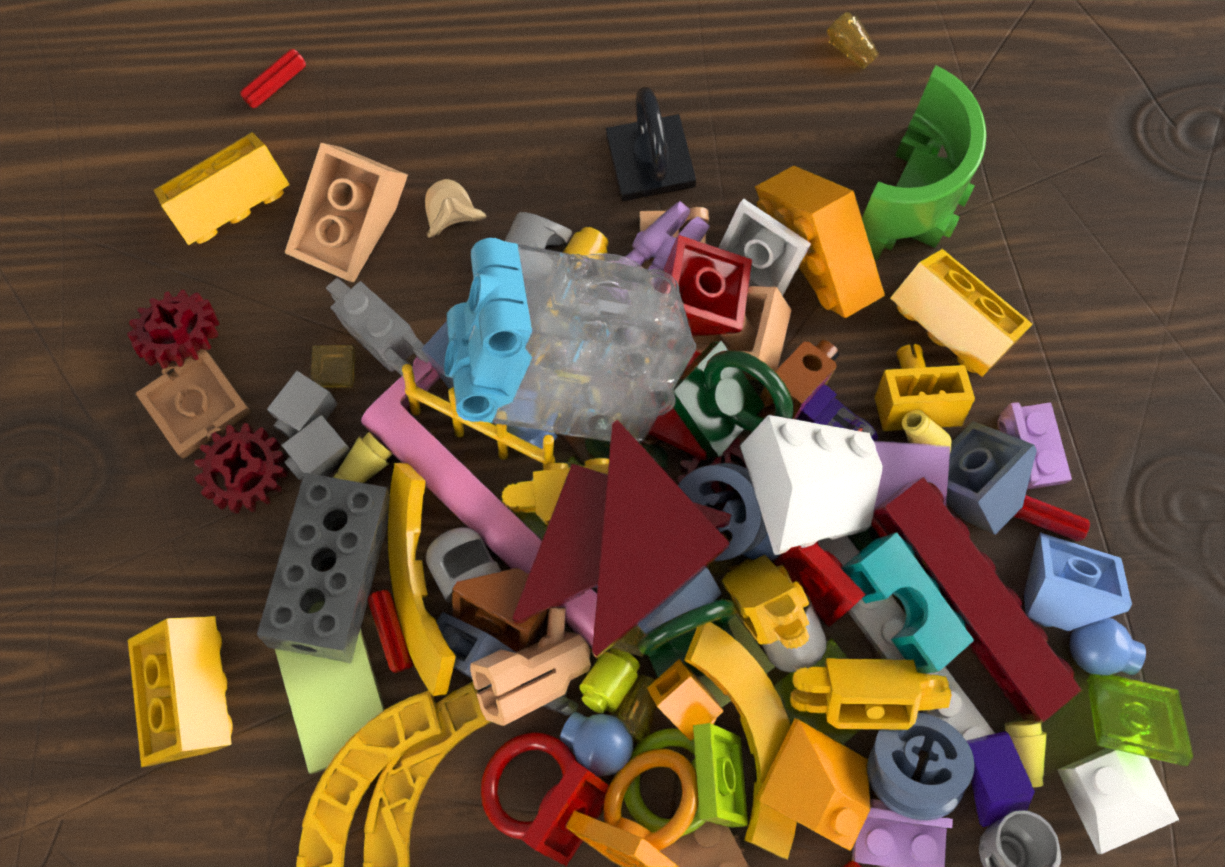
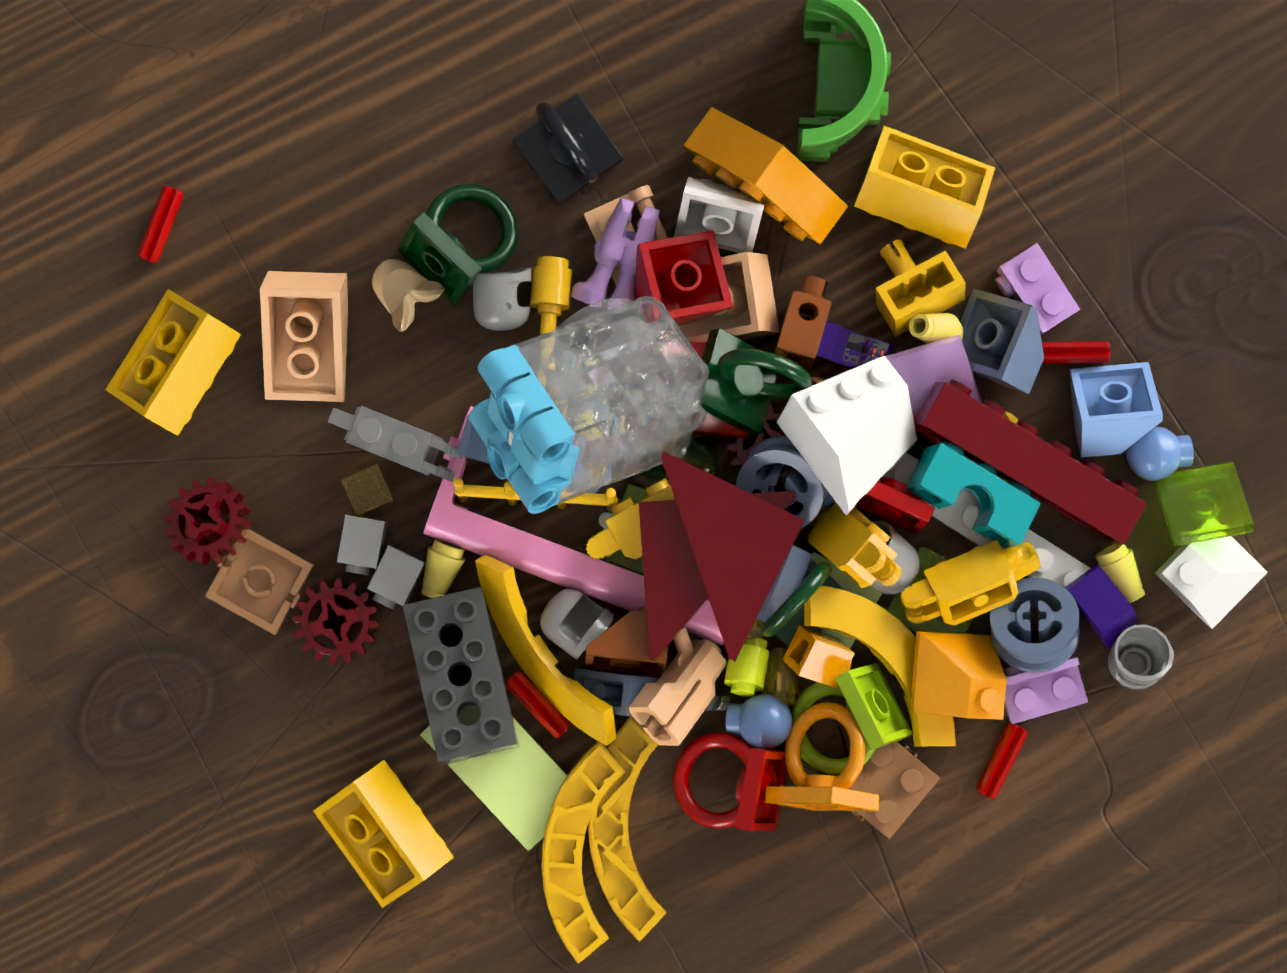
camera: 20 degrees left, 15 degrees up
(497, 189) = (442, 256): none -> dark green tile

